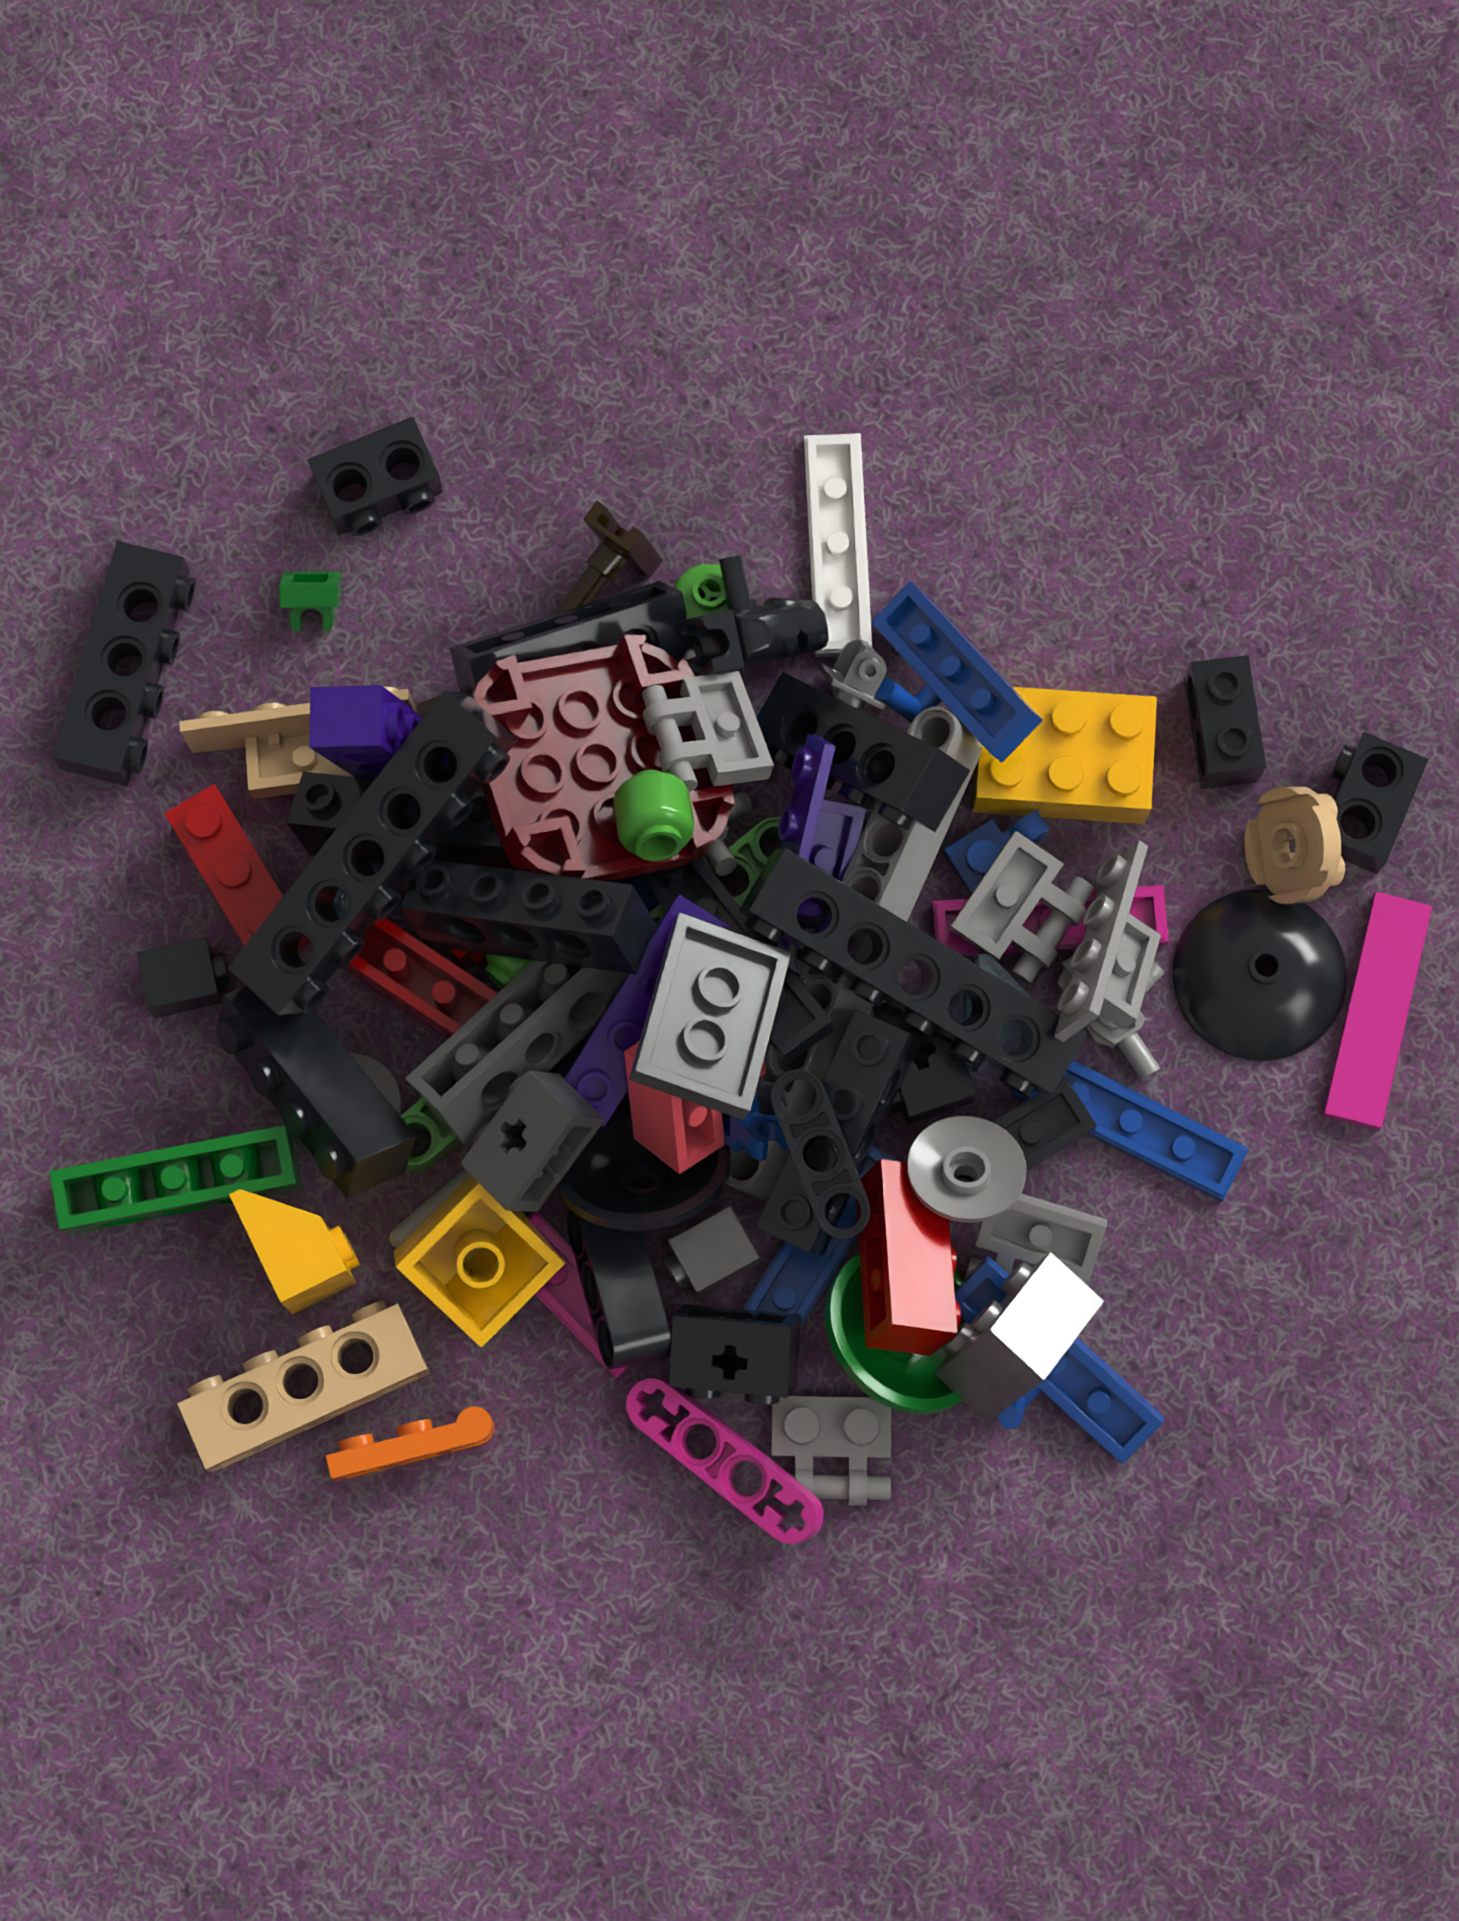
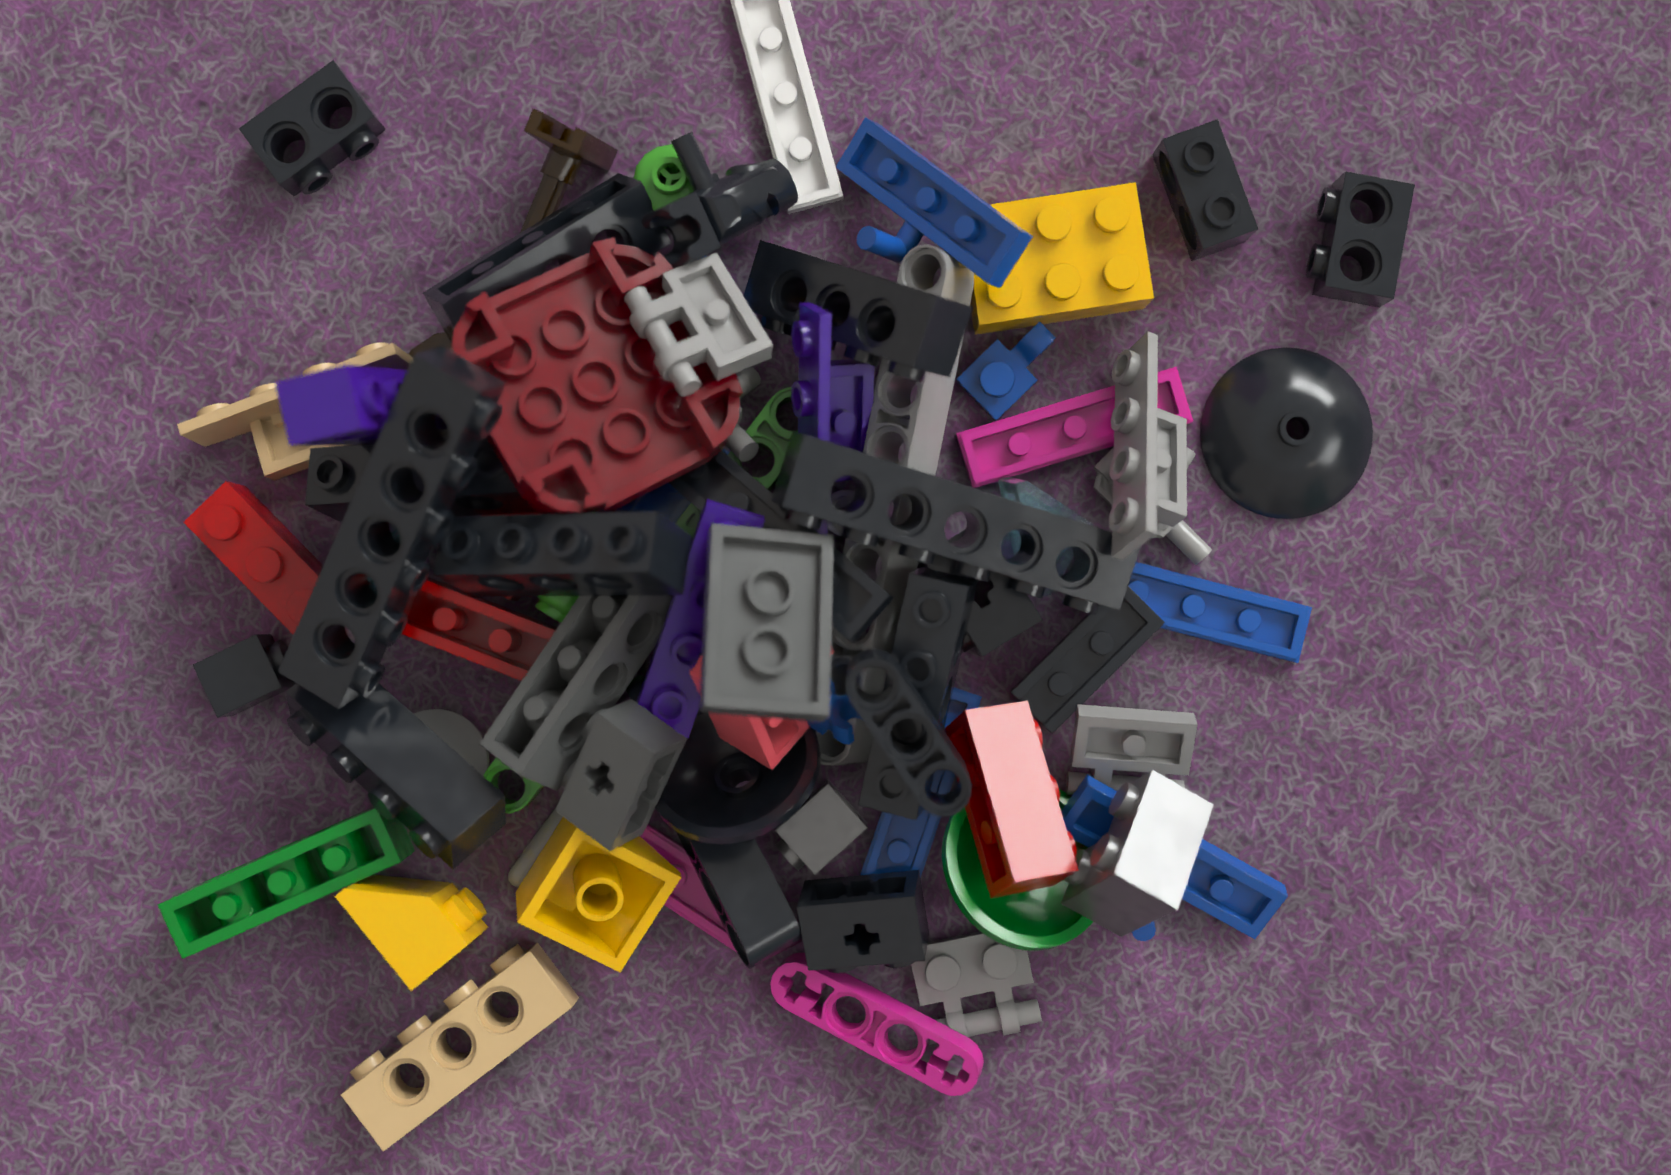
camera: 10 degrees left, 10 degrees up
(132, 578) = (92, 349): black brick -> none
(311, 591) = (276, 260): green tile -> none
(414, 1443) = (577, 1075): orange plate -> none
(653, 815) = (663, 426): bright green head -> none
(856, 675) = (834, 228): flat silver hinge -> none
(972, 1149) = (1056, 675): light grey dish -> none
(1007, 897) = (1030, 416): light grey plate -> none
(1317, 859) = (1326, 297): tan plate -> none
(1377, 1011) = (1407, 443): dark pink tile -> none

